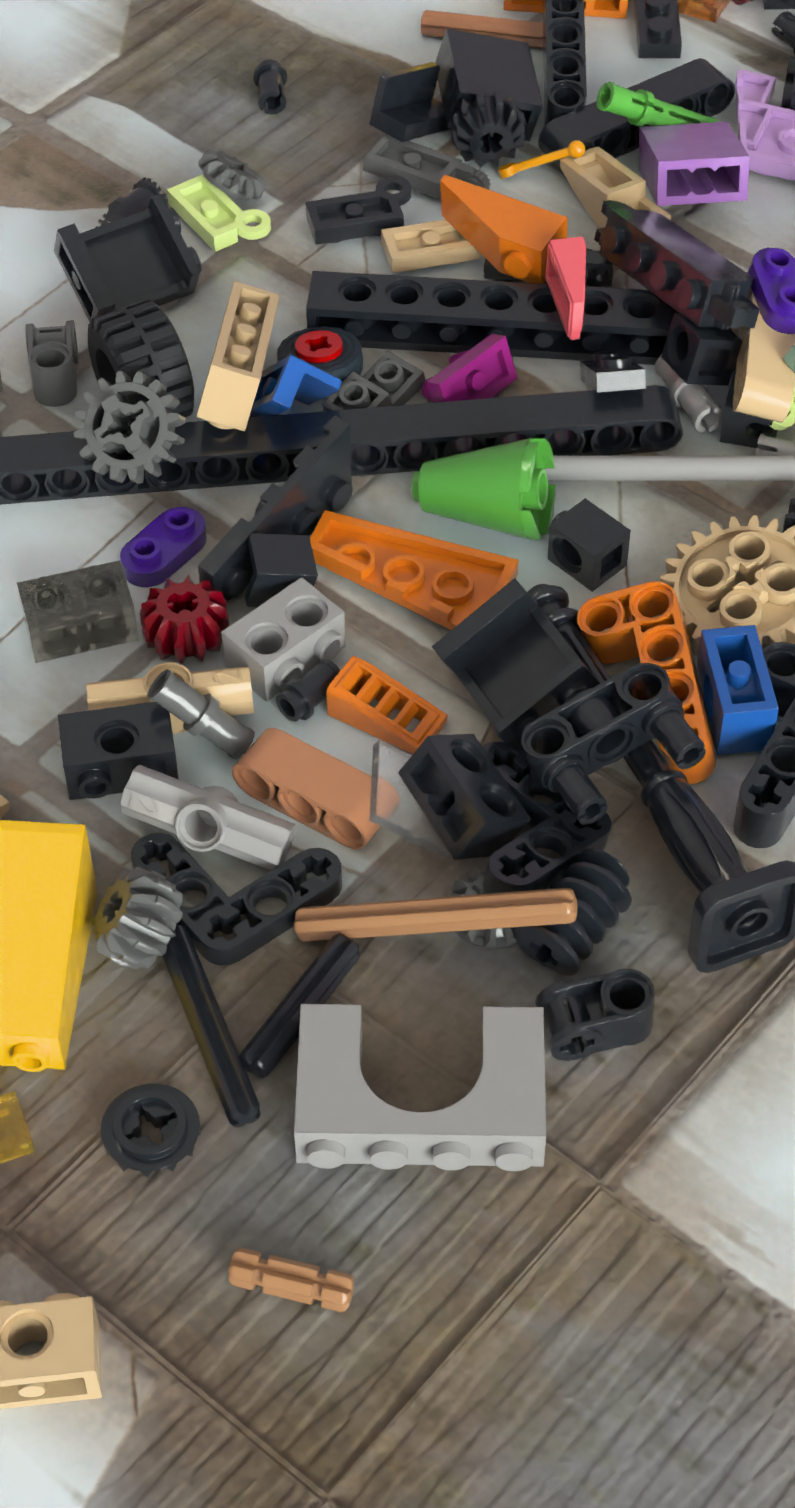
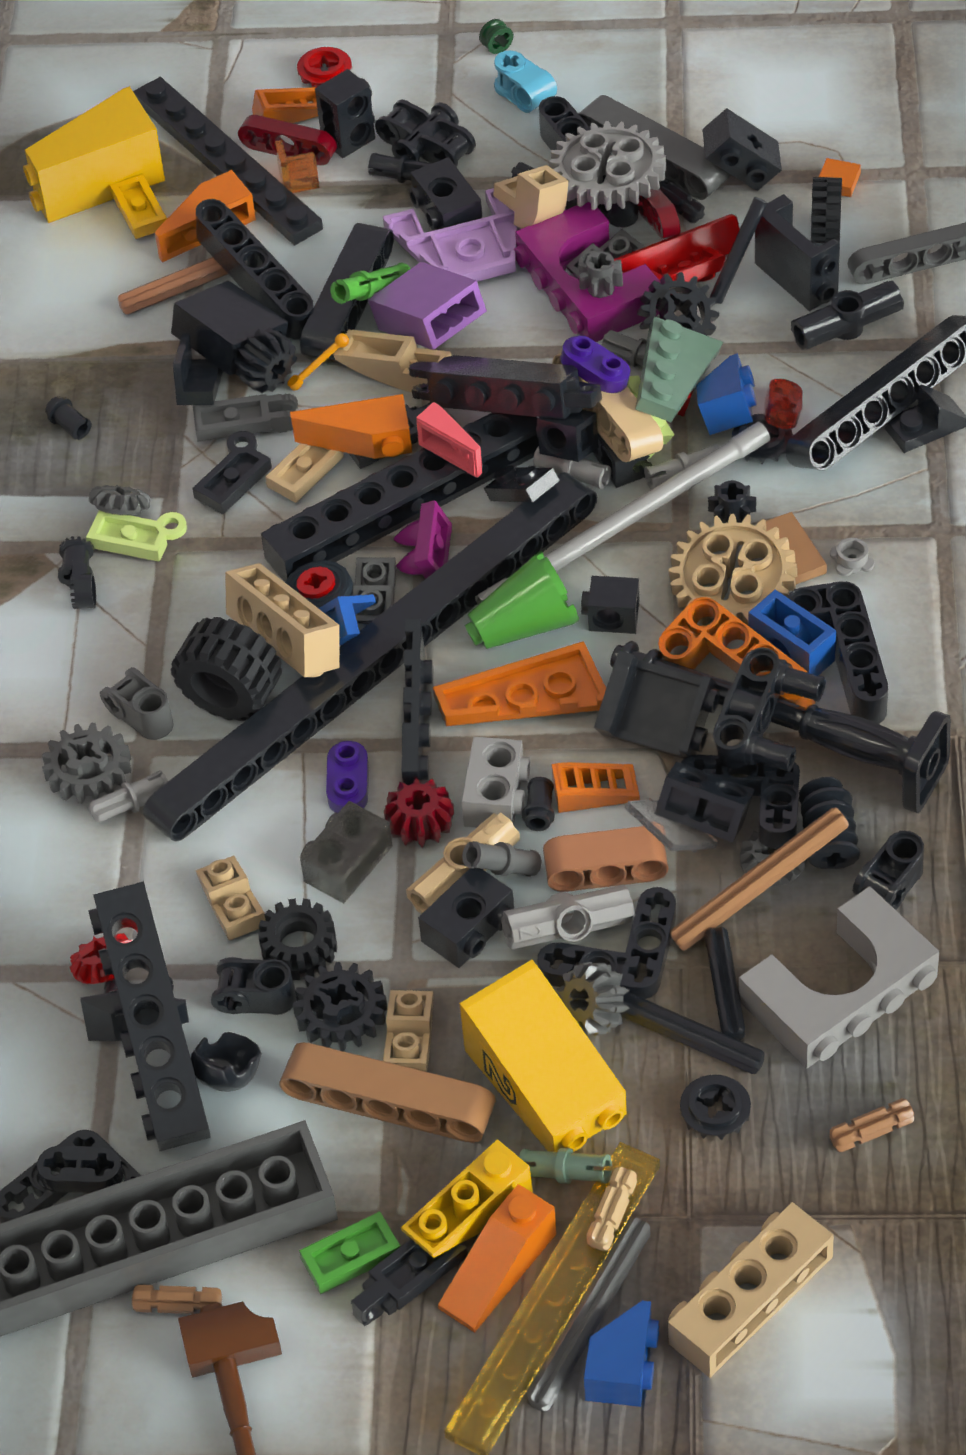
camera: 35 degrees left, 0 degrees up
(116, 412) = (291, 719): dark grey gear -> none
(129, 260) = (124, 604): black panel -> none
(278, 563) = (453, 737): black panel -> none

